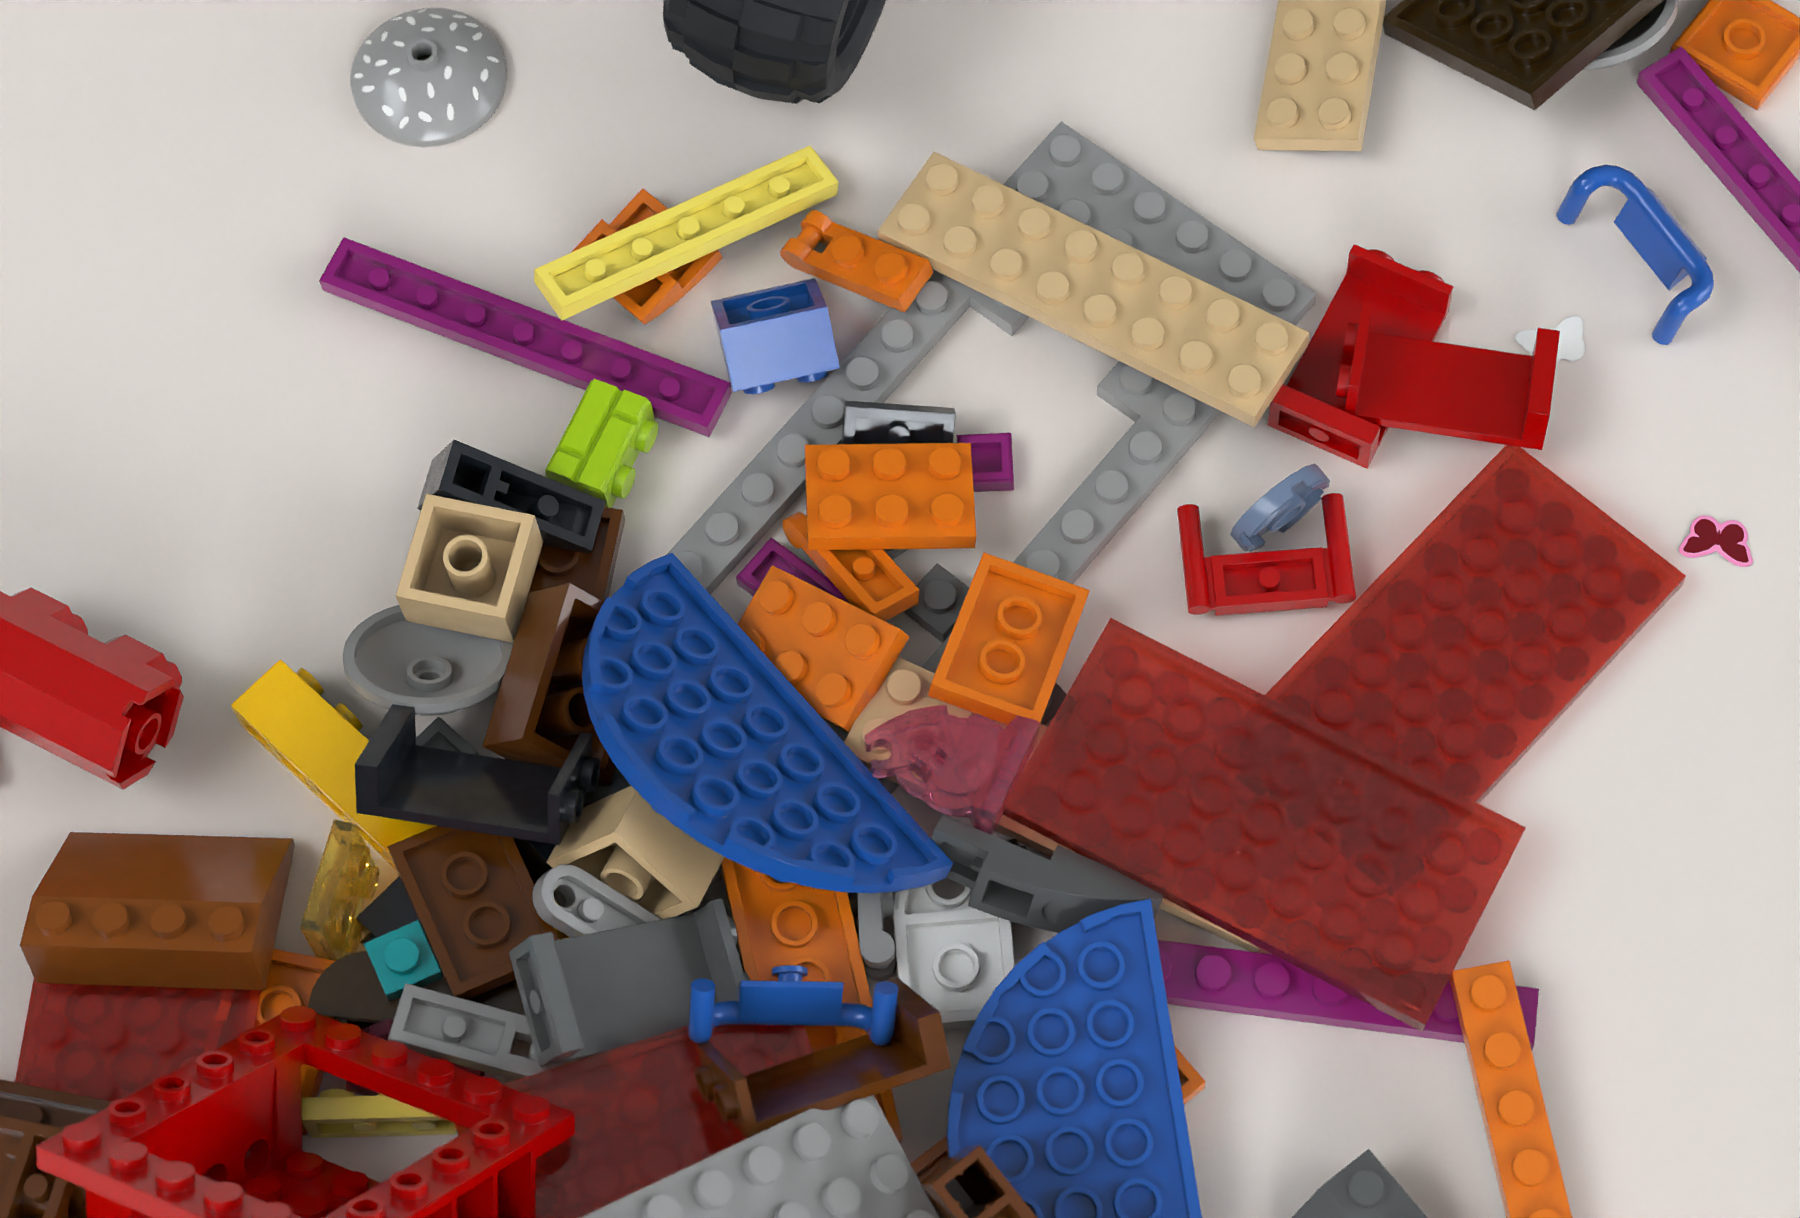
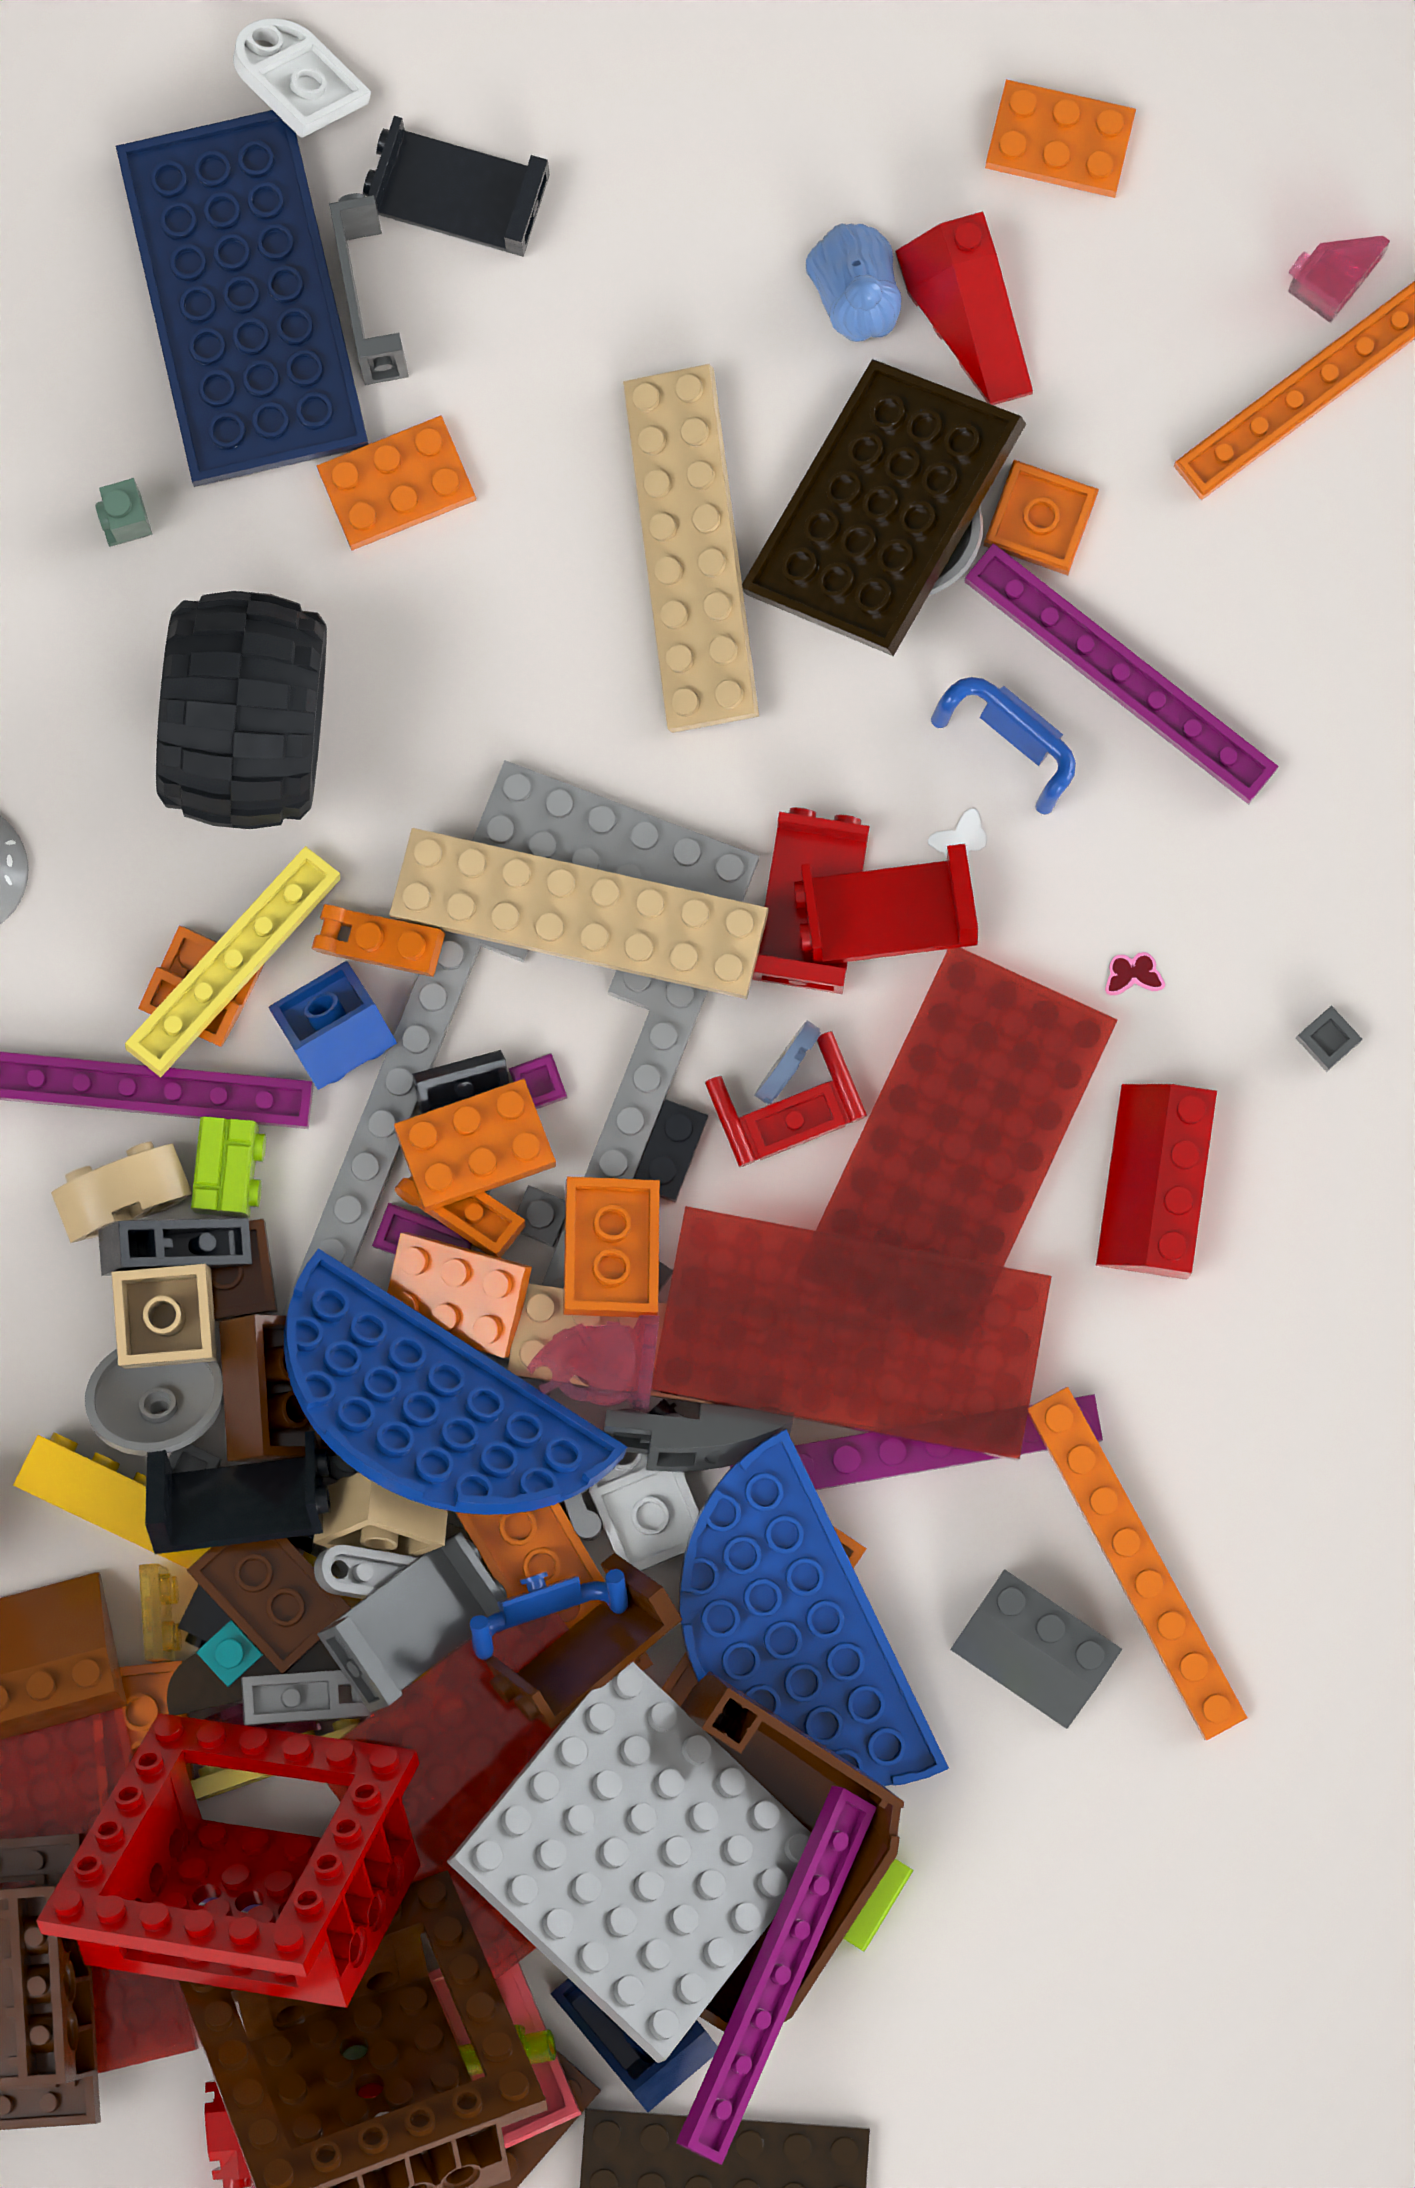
camera: 20 degrees left, 15 degrees up
(498, 423) = (121, 1191): none -> tan brick
(1118, 572) = (672, 1148): none -> black plate
(1684, 766) = (1156, 1179): none -> red slope

